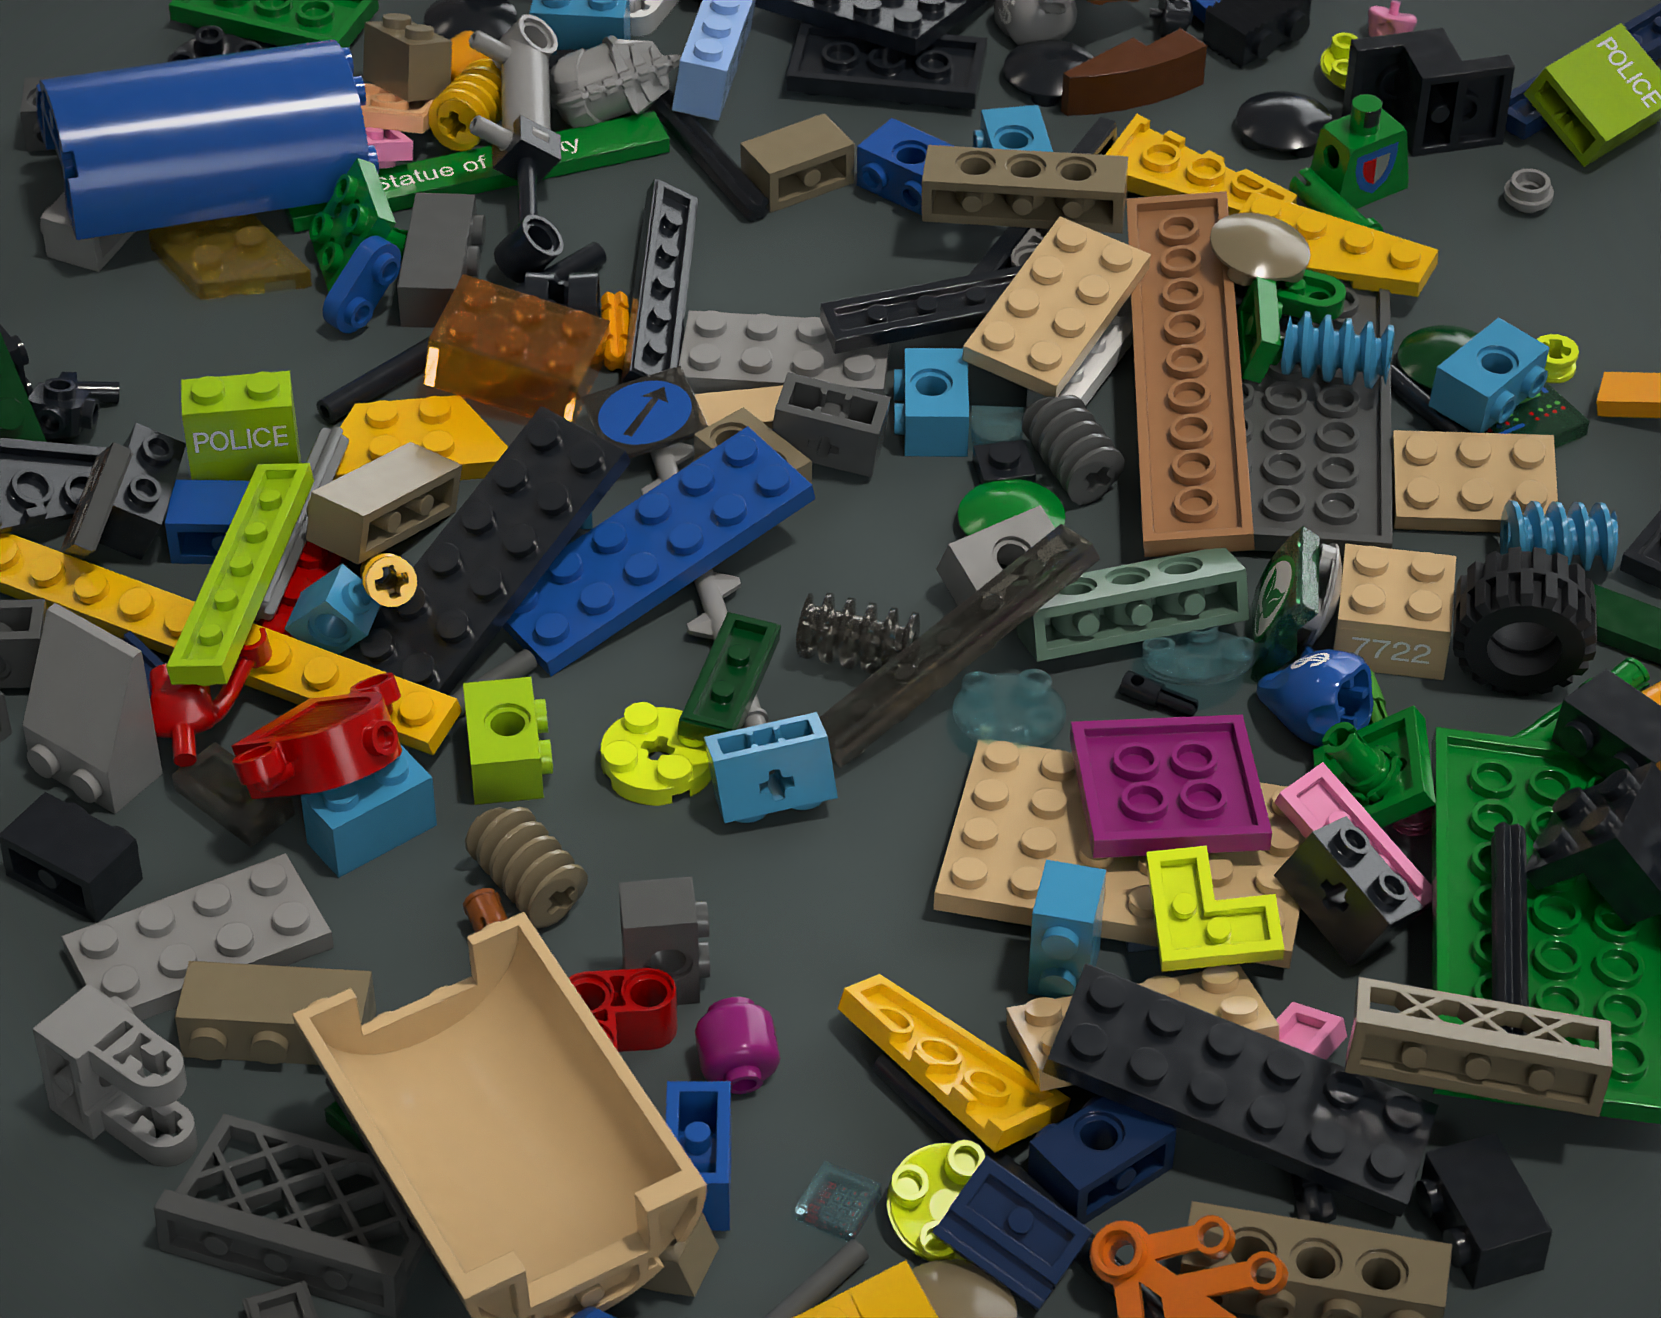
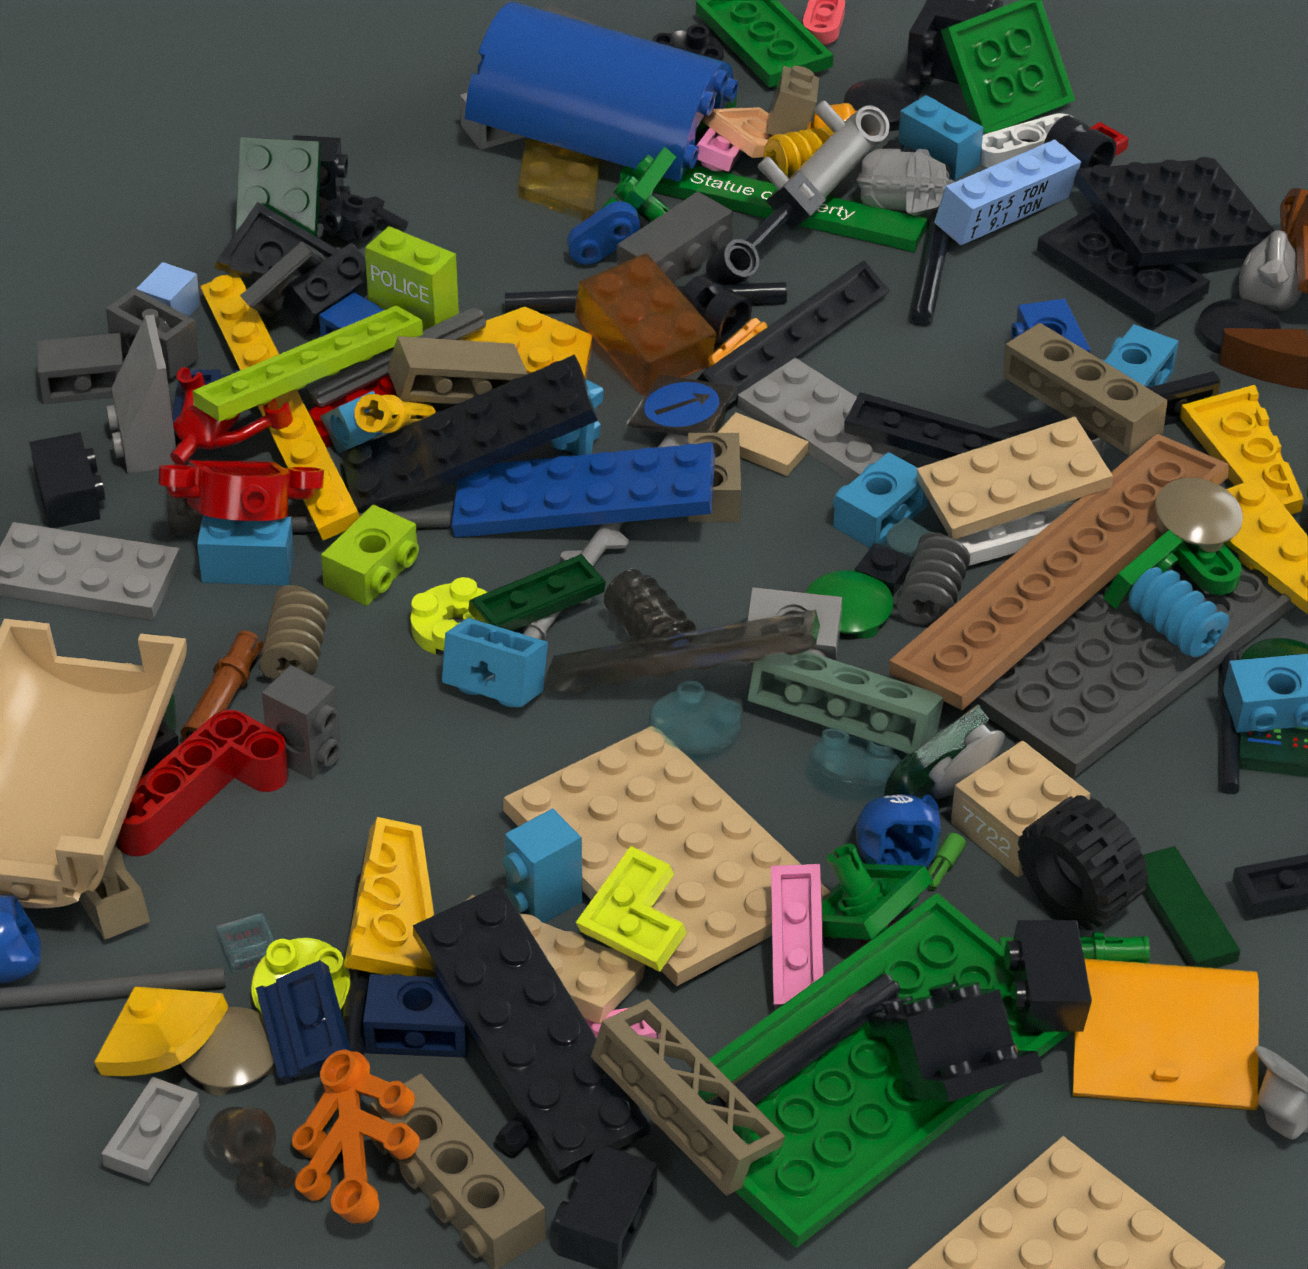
camera: 40 degrees right, 0 degrees up
(249, 1008) = (73, 624): dark tan brick -> none
(702, 1124) = (184, 857): blue brick -> none
(737, 1044) = (288, 813): magenta head -> none
(799, 161) = (977, 298): dark tan brick -> none
(832, 423) = (783, 474): dark grey brick -> none
(1156, 694) = (805, 768): black pin -> none
(1169, 785) = (715, 821): magenta plate -> none
(1348, 890) = (751, 957): black brick -> none
(1468, 478) = (1193, 760): tan plate -> none
(1562, 533) = (1202, 832): dark azure piece -> none

